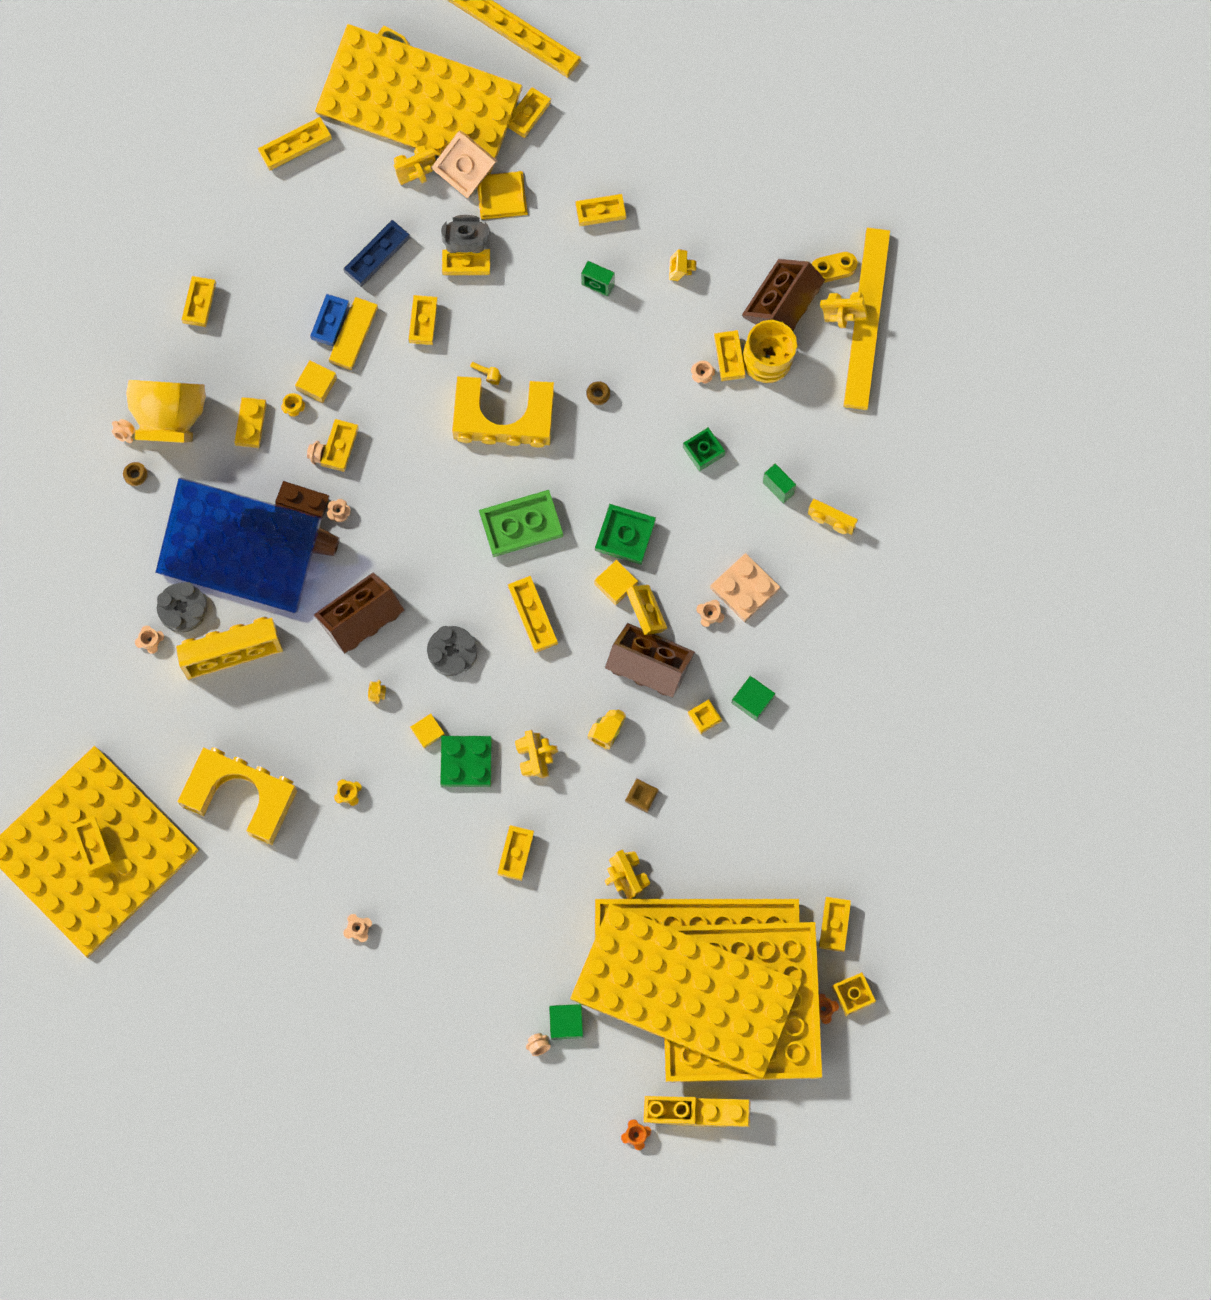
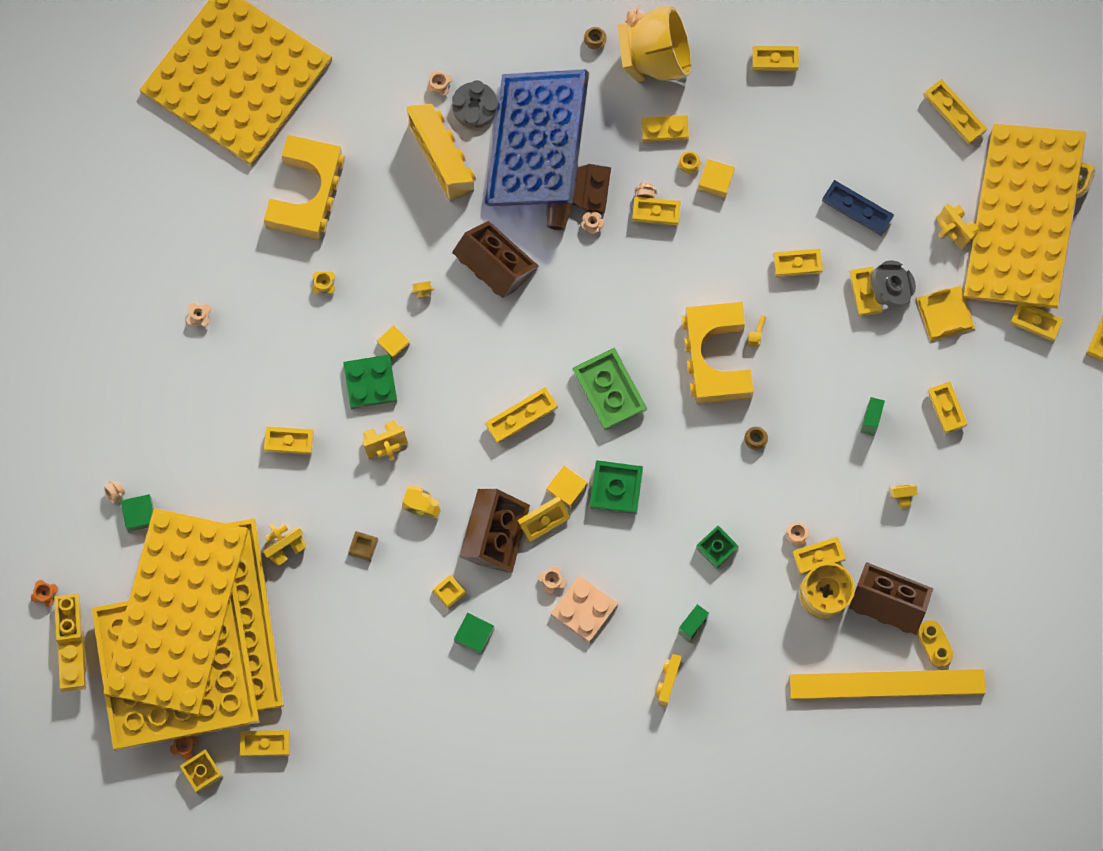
camera: 80 degrees right, 0 degrees up
(91, 844) = (236, 70): yellow plate -> none
(329, 320) = (780, 178): blue plate -> none
(353, 333) = (772, 202): yellow tile -> none
(445, 638) = (467, 338): dark grey plate -> none
(464, 164) = (964, 269): light nougat plate -> none
(843, 310) = (885, 655): yellow hips -> none

